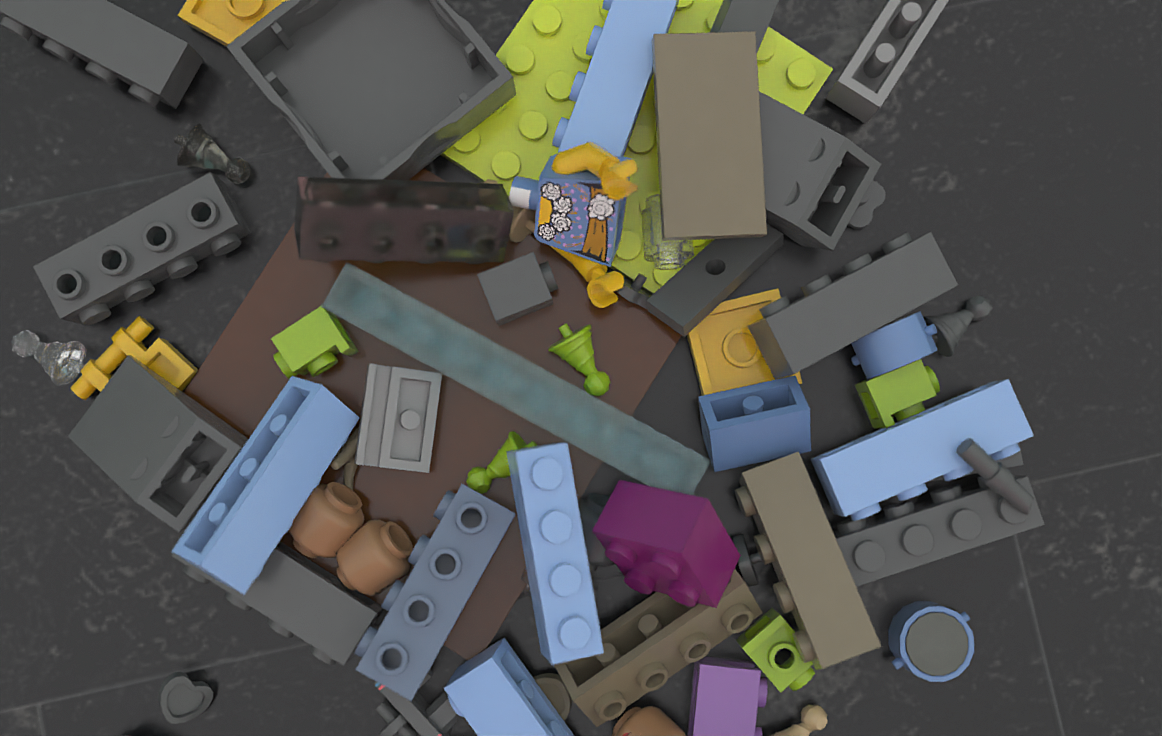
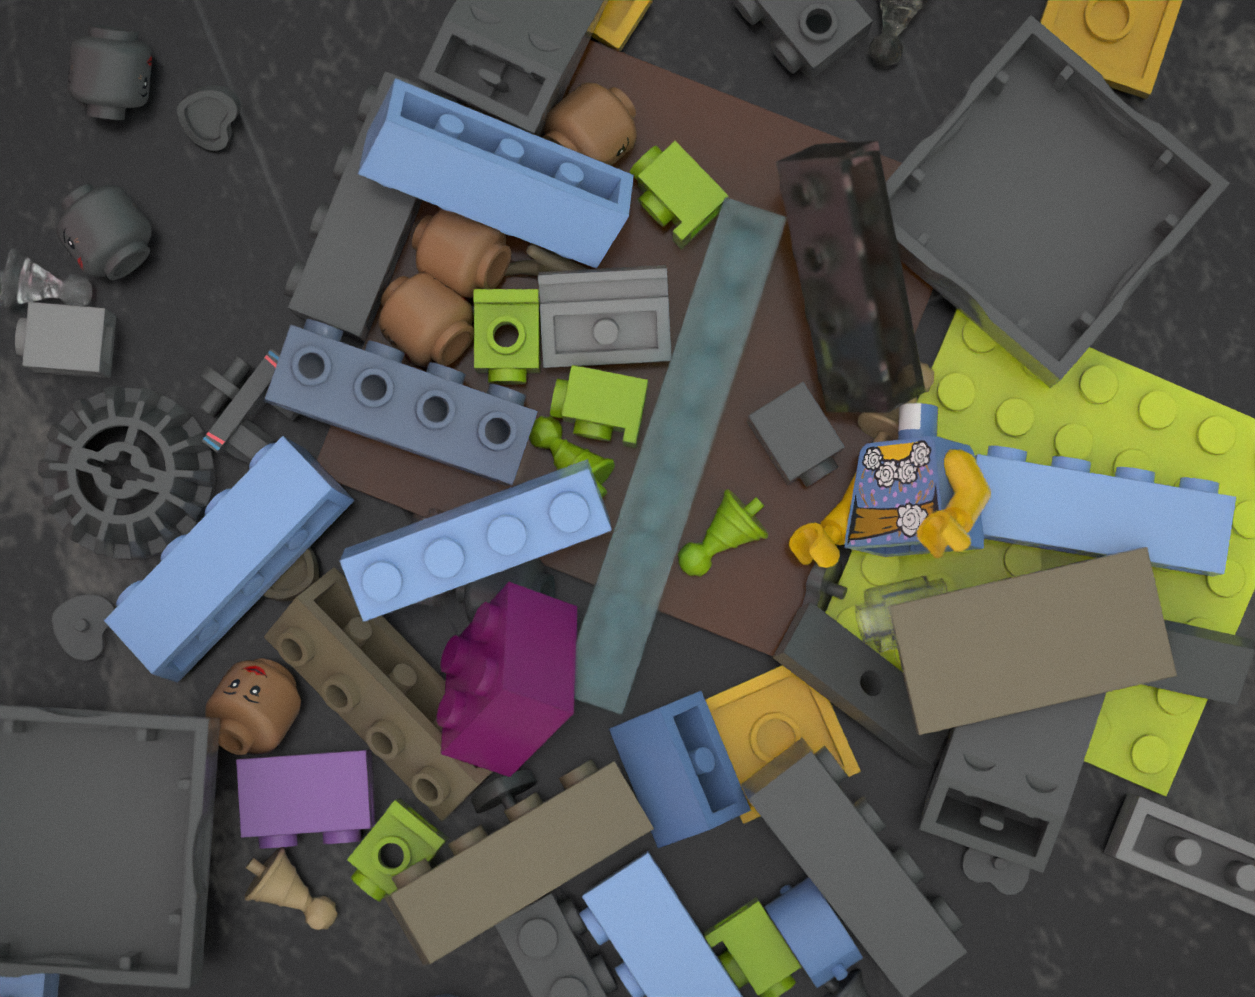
camera: 90 degrees right, 0 degrees up
(245, 399) = (594, 122): none -> medium nougat head
(376, 492) = (512, 308): none -> lime brick
(464, 433) = (600, 404): none -> lime brick

